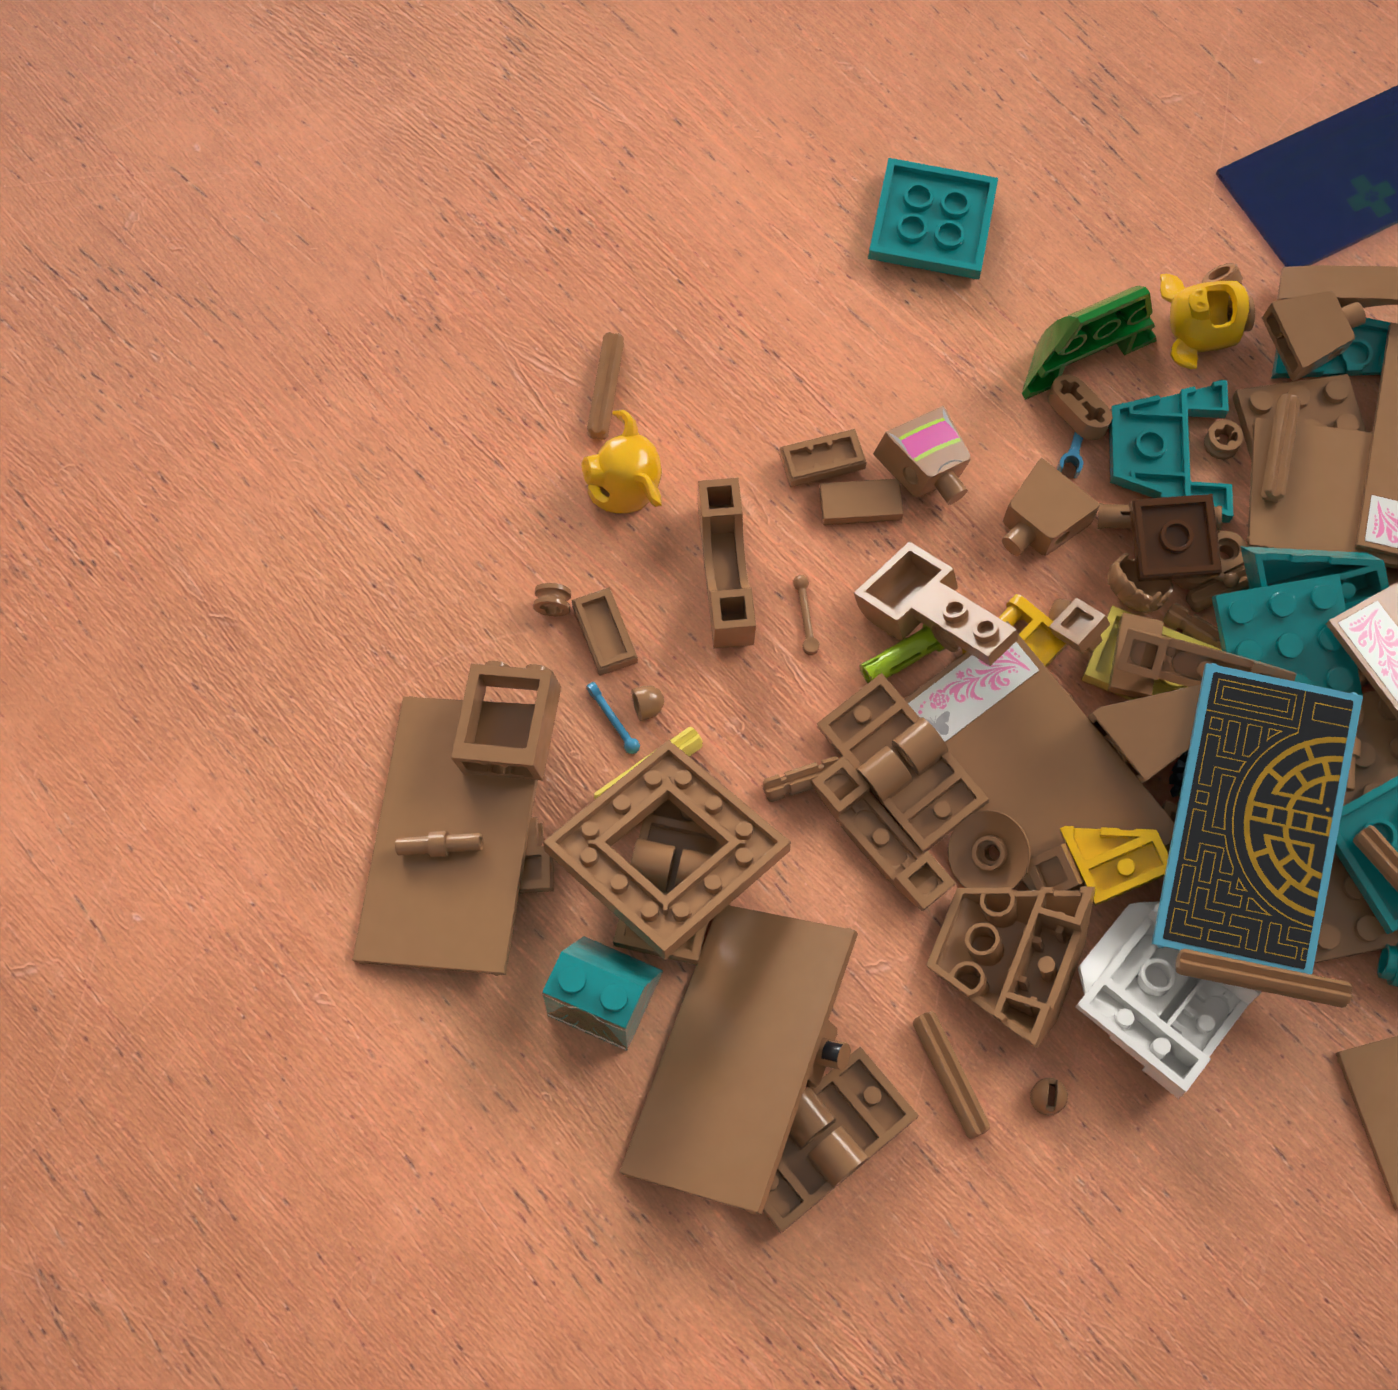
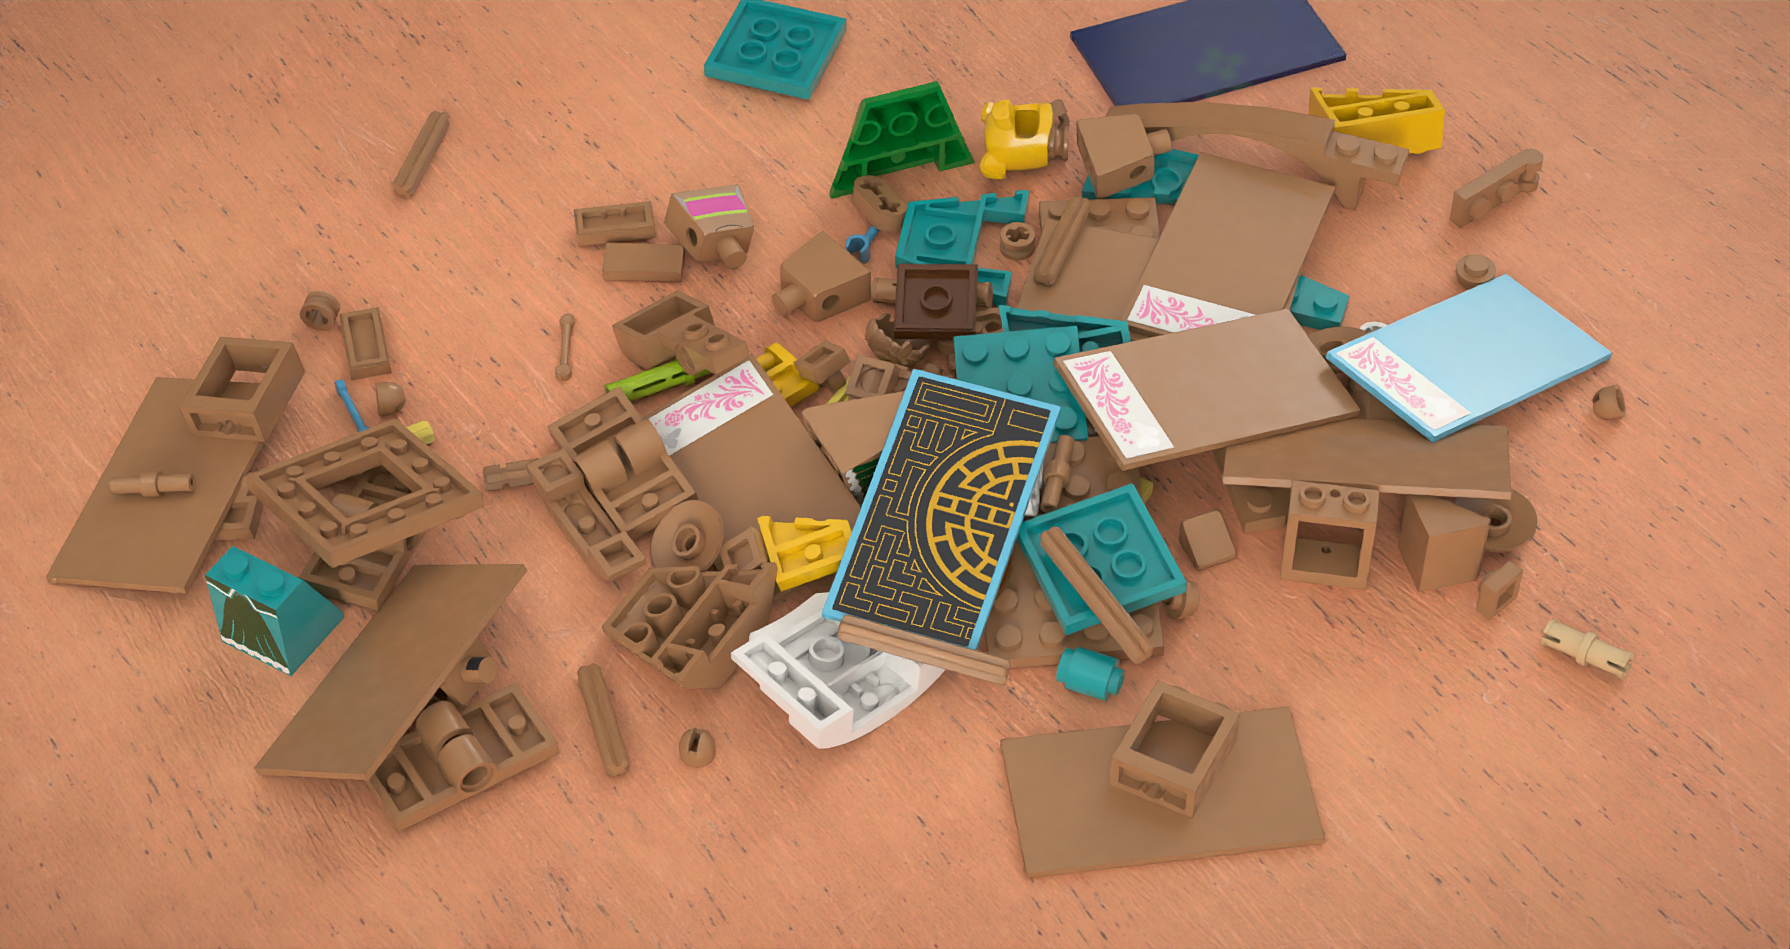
camera: 10 degrees right, 20 degrees down
(626, 469) = (417, 209): yellow piece -> none
(725, 564) = (491, 314): medium nougat arch -> none

